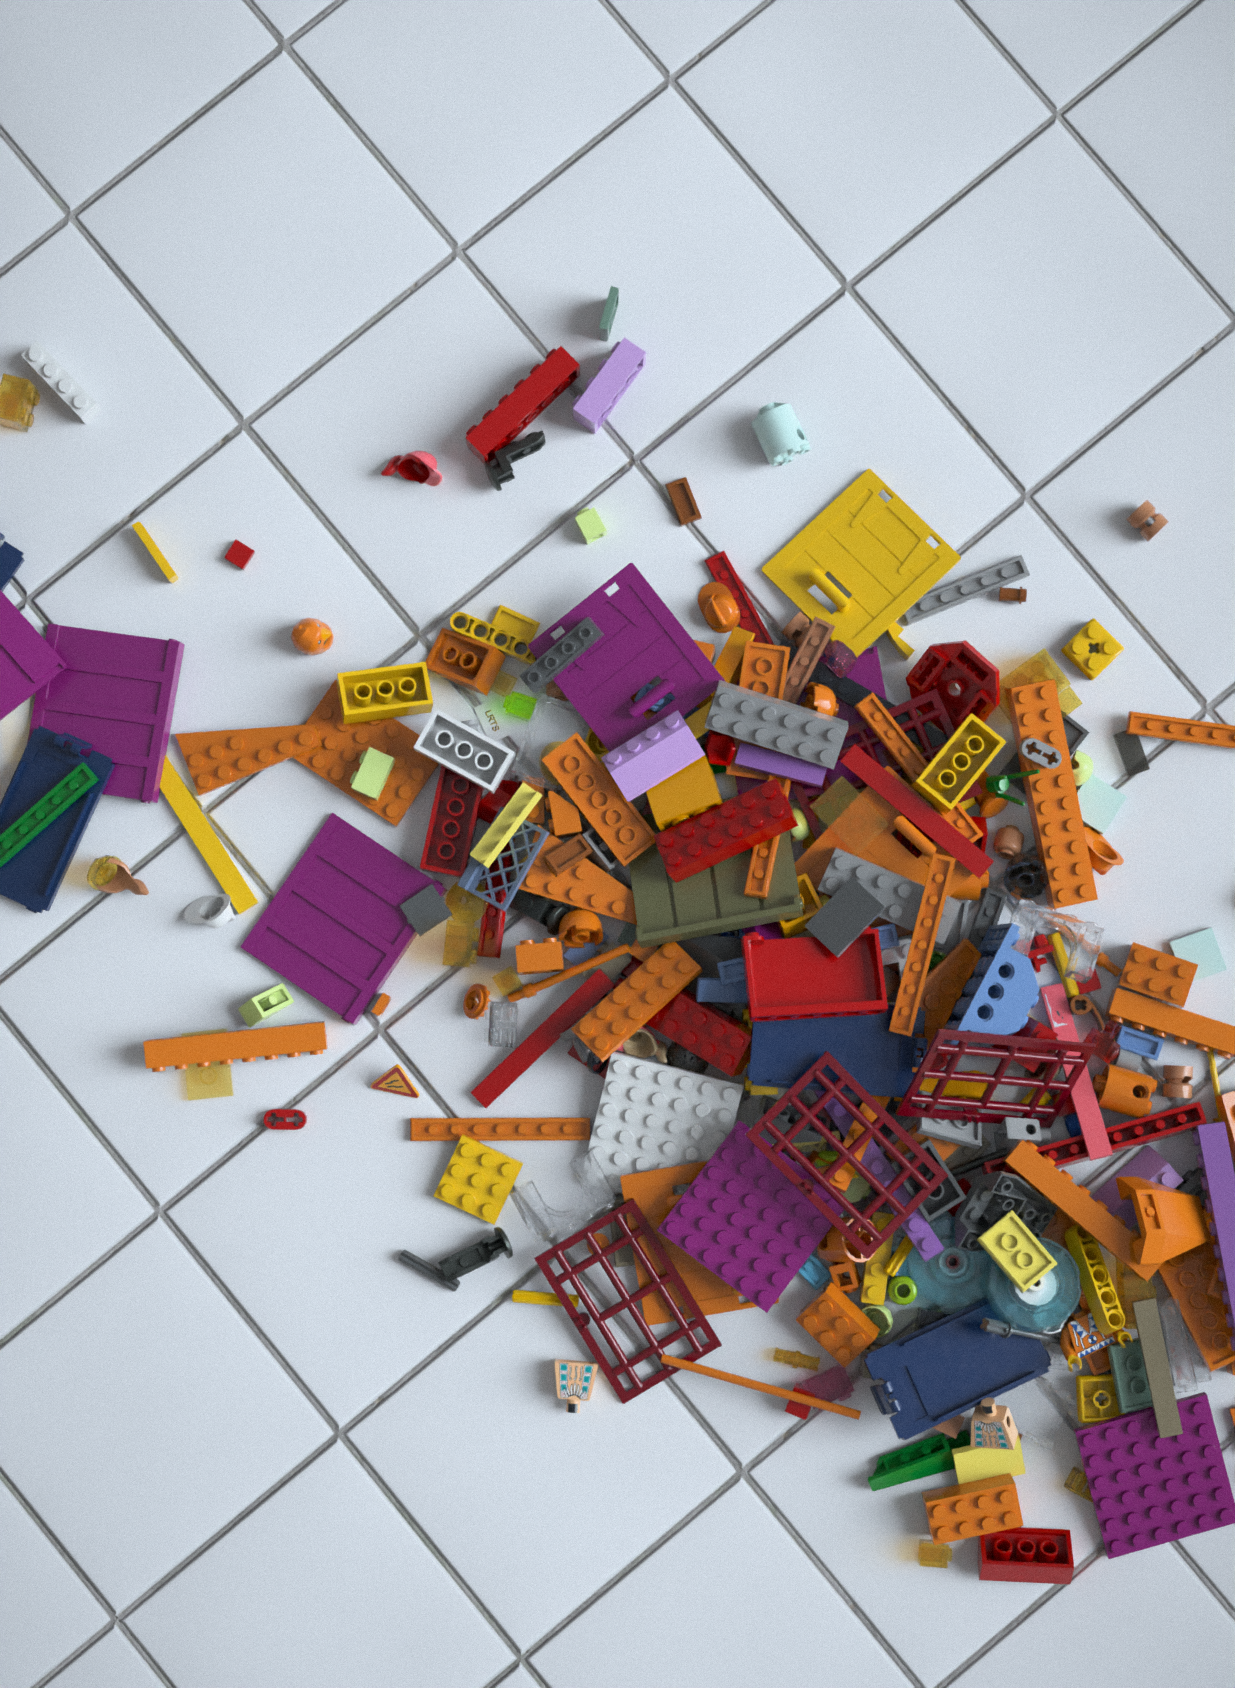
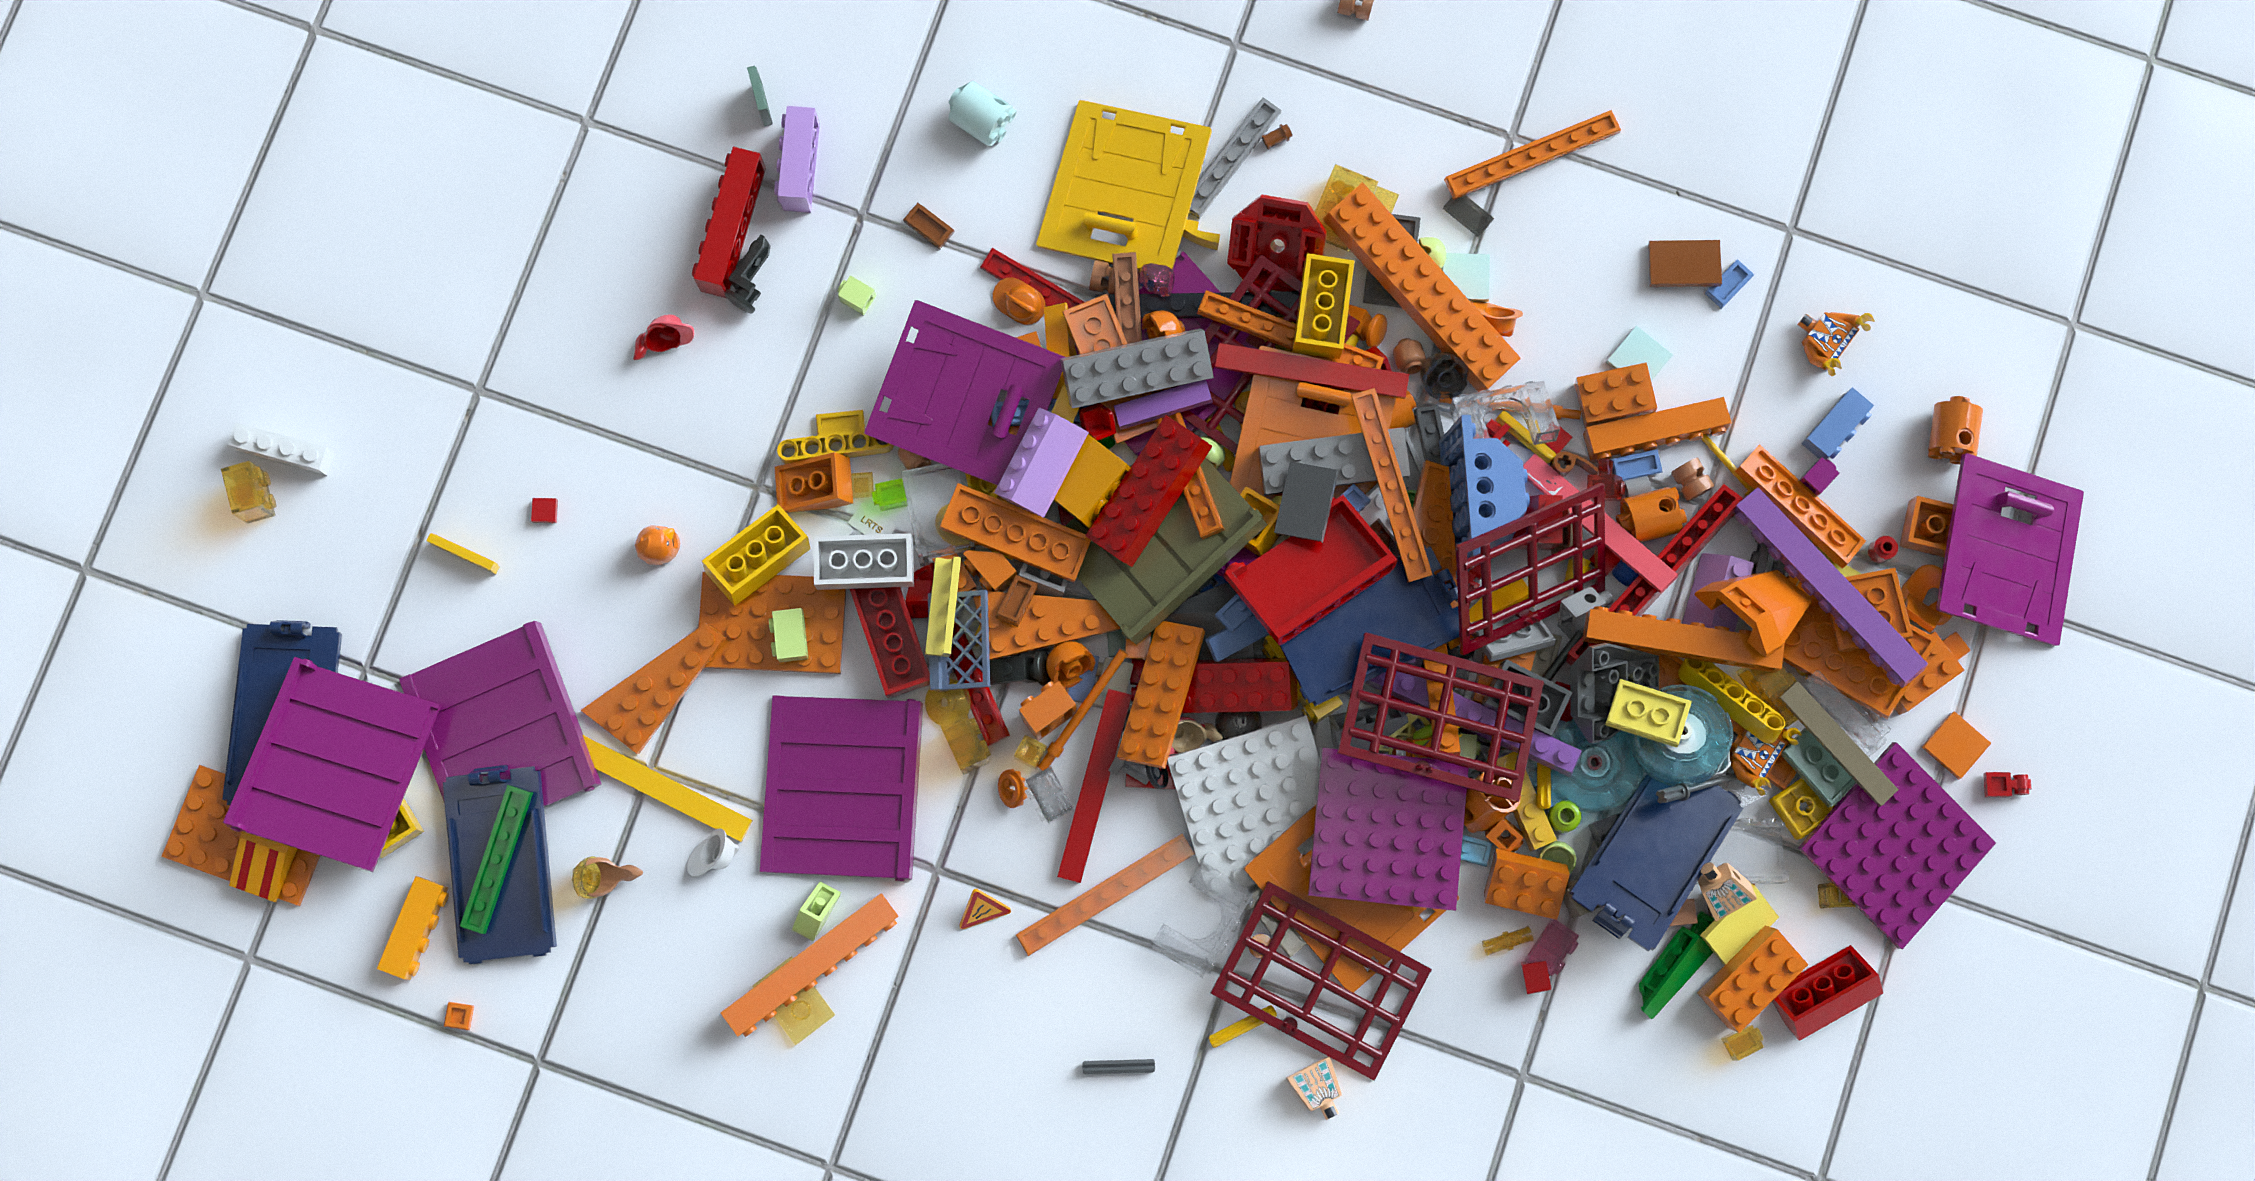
camera: 35 degrees left, 5 degrees down
(285, 1113) = (901, 1012): red beam -> none
(381, 1004) = (925, 845): orange tile -> none
(426, 910) = (914, 731): dark grey piece -> none
(476, 1255) = (1155, 1024): pearl dark grey piece -> none
(478, 1179) = (1113, 953): yellow plate -> none
(561, 655) = (901, 420): dark grey brick -> none
(759, 1386) = (1491, 984): orange piece -> none
(849, 815) = (1253, 411): clear yellow tile -> none
(1000, 783) = (1370, 304): green plant -> none
(1038, 758) = (1391, 259): light grey beam -> none
(1092, 634) = (1391, 138): yellow brick -> none

